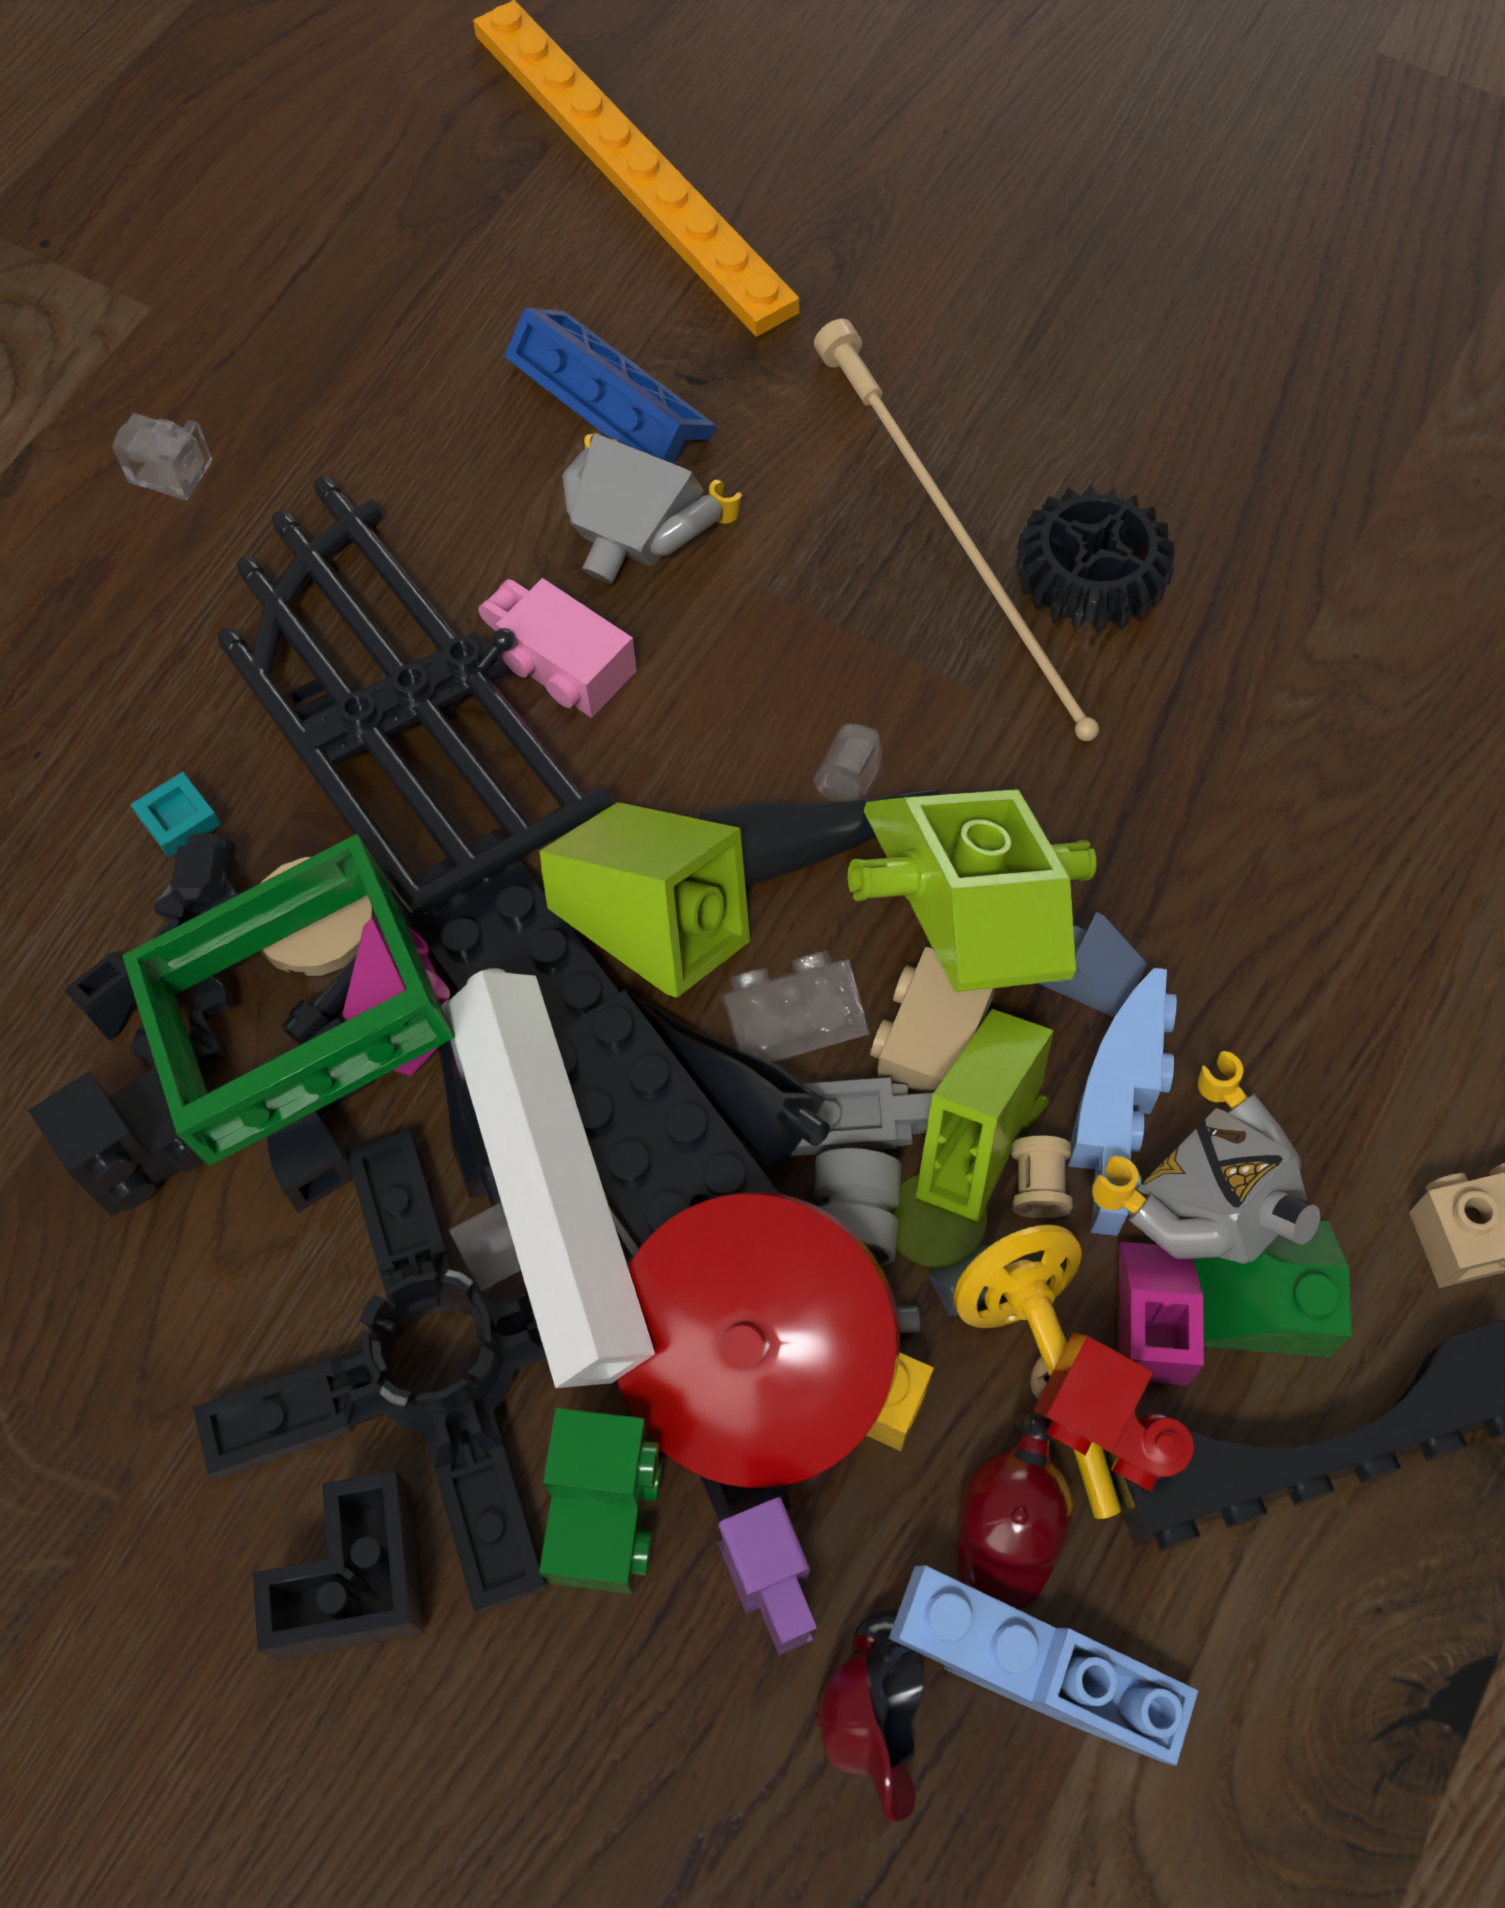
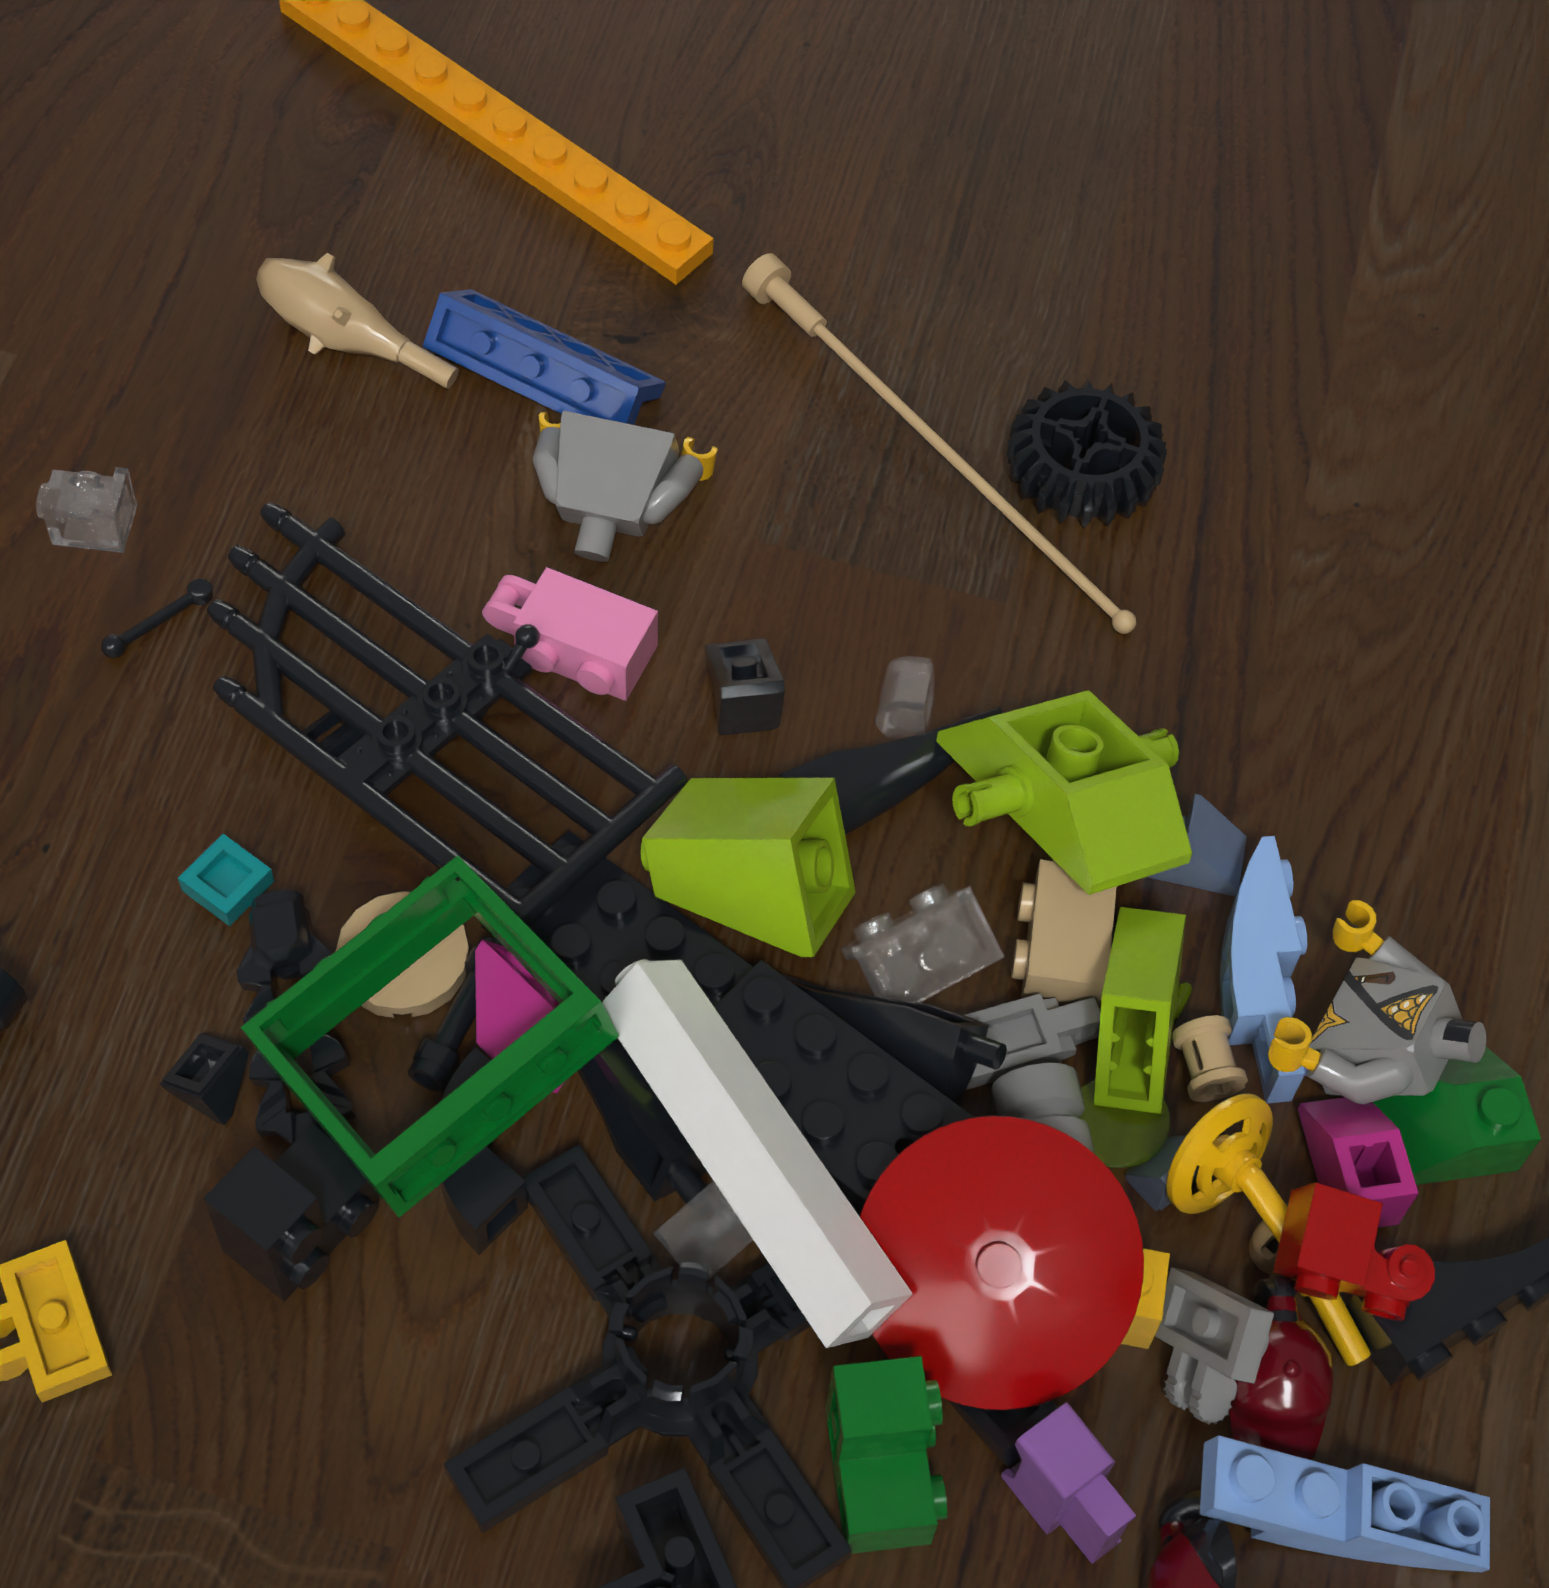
camera: 20 degrees left, 5 degrees down
(237, 548) = (198, 593): none -> black hinge
(434, 319) = (338, 318): none -> tan piece
(697, 724) = (745, 686): none -> black slope
(956, 1467) = (1214, 1343): none -> light grey hinge

